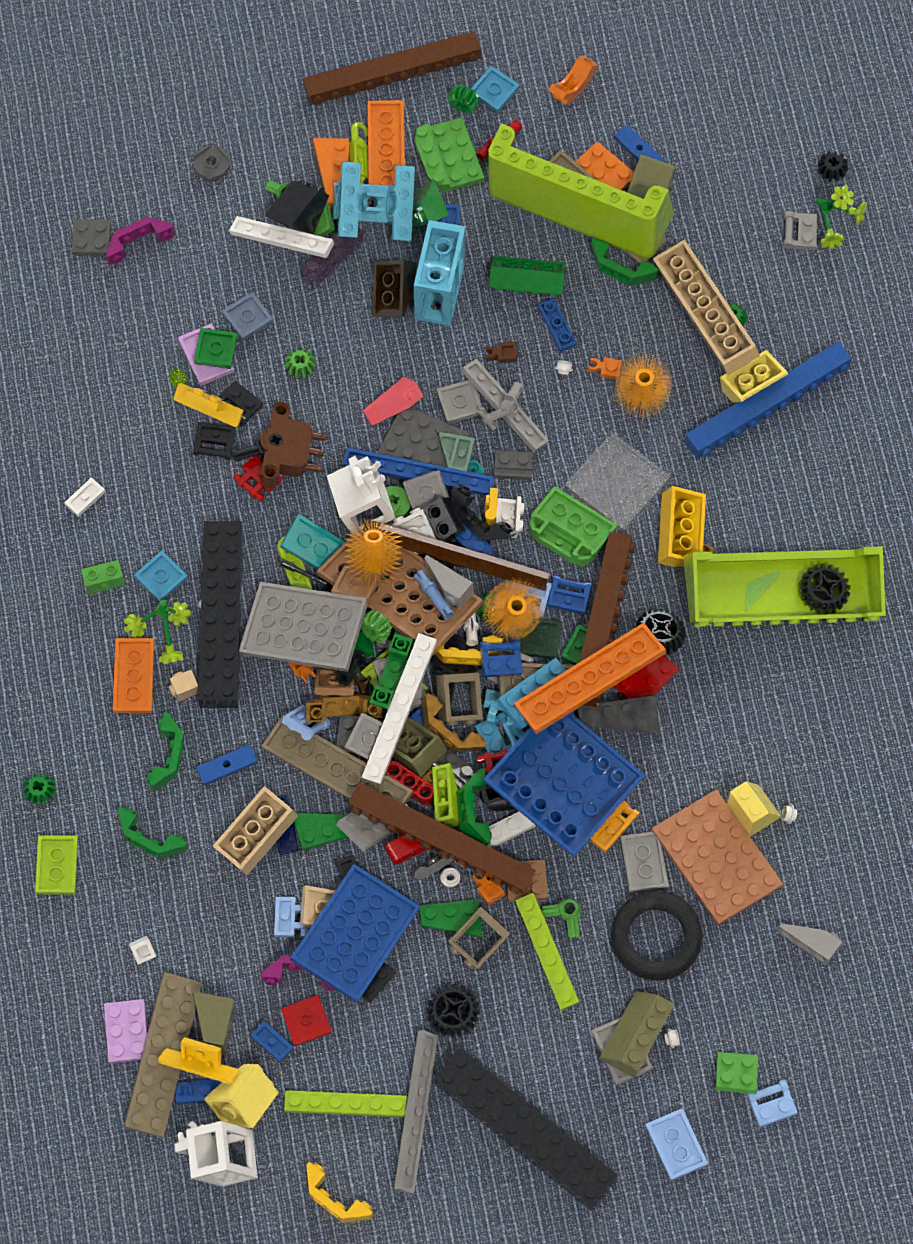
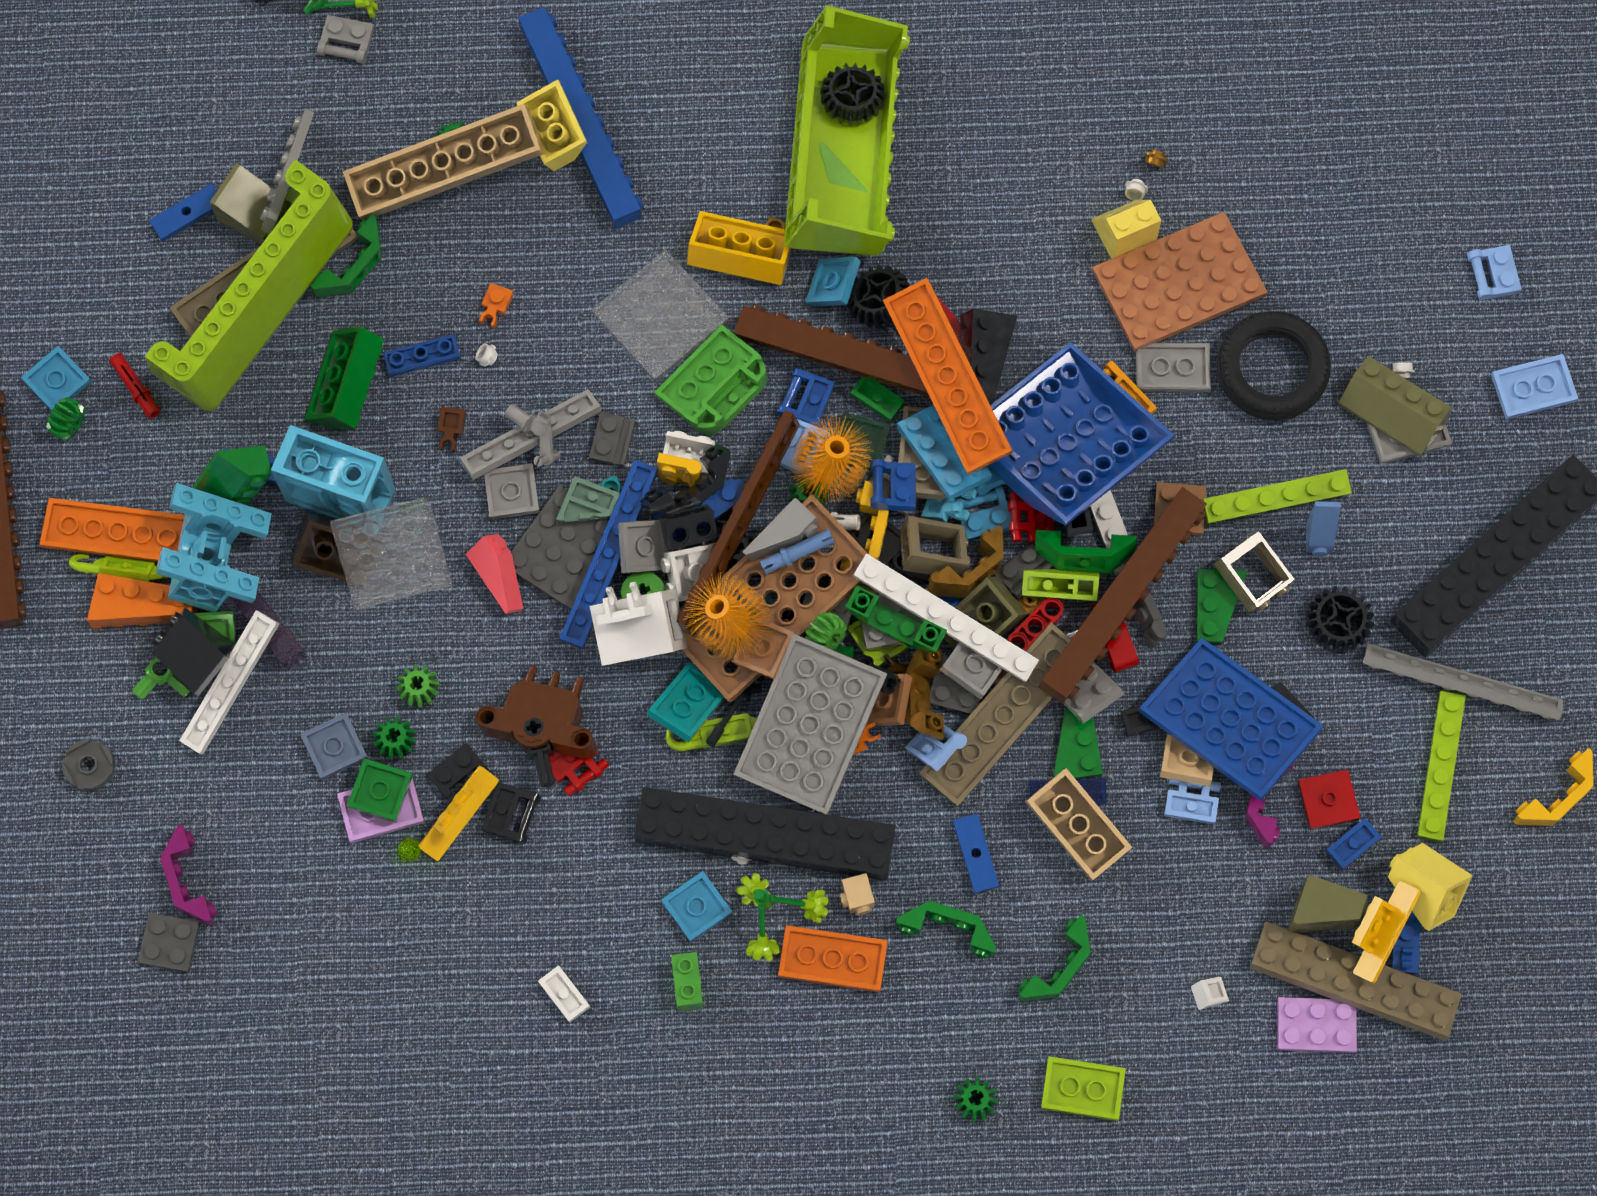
camera: 80 degrees left, 5 degrees up
(210, 1153) = (1490, 935): white piece -> none
(258, 354) = (404, 738): none -> green gear
(392, 322) = (391, 553): none -> clear plate
(448, 155) = (142, 453): bright green plate -> none
(450, 871) = (1167, 592): white plate -> none
(488, 890) = (1189, 554): orange plate -> none
(520, 984) = (1322, 528): none -> medium blue slope
(561, 910) = (1237, 462): bright green axle -> none
(575, 81) = (68, 274): orange arch -> none
(605, 167) = (205, 258): orange plate -> none
(643, 385) = (537, 258): light orange piece -> none
(665, 597) = (833, 281): none -> dark azure plate
(688, 204) = (277, 195): none -> light grey plate
(736, 1073) = (1454, 303): bright green plate -> none
(814, 941) = (1307, 182): light grey slope -> none
(818, 825) = (1156, 158): none -> pearl gold plate

